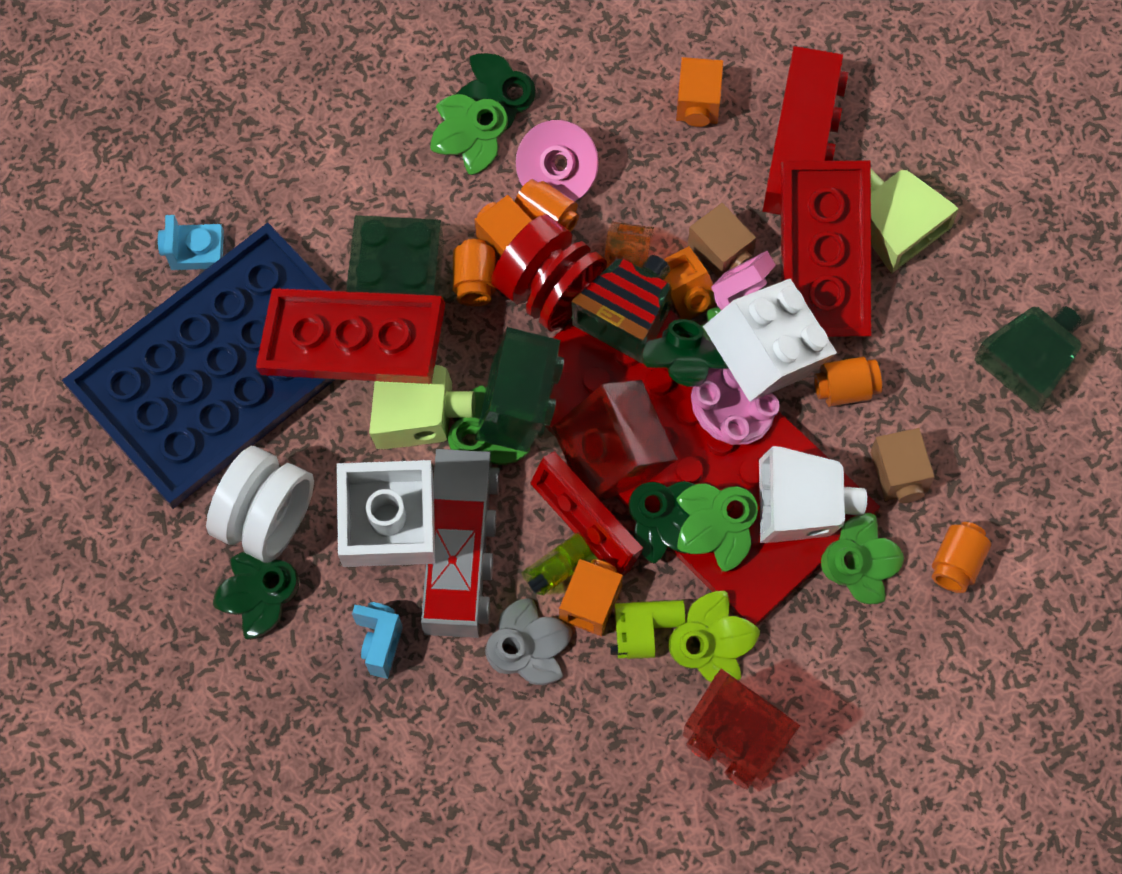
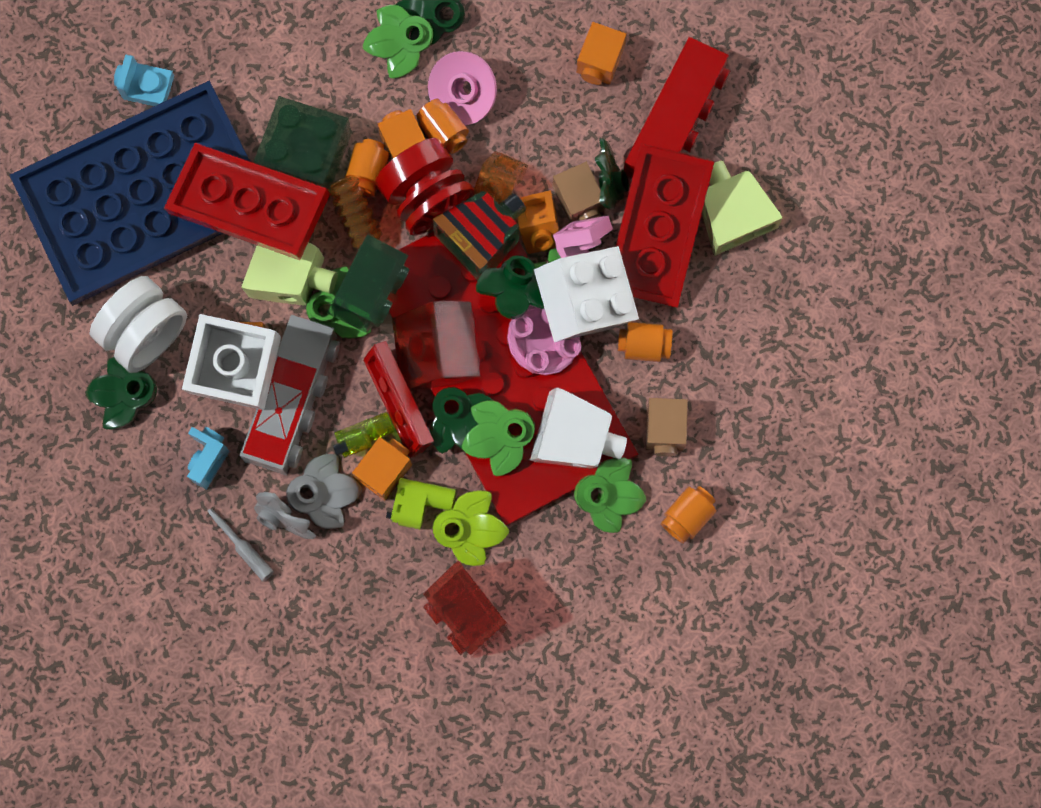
camera: 15 degrees right, 10 degrees up
(454, 736) = (244, 549): none -> light grey piece
(474, 318) = (354, 210): none -> clear orange piece
(480, 682) = (275, 513): none -> light grey plate
(754, 217) = (612, 180): none -> dark green plate
(1032, 353) = (806, 358): clear green torso -> none

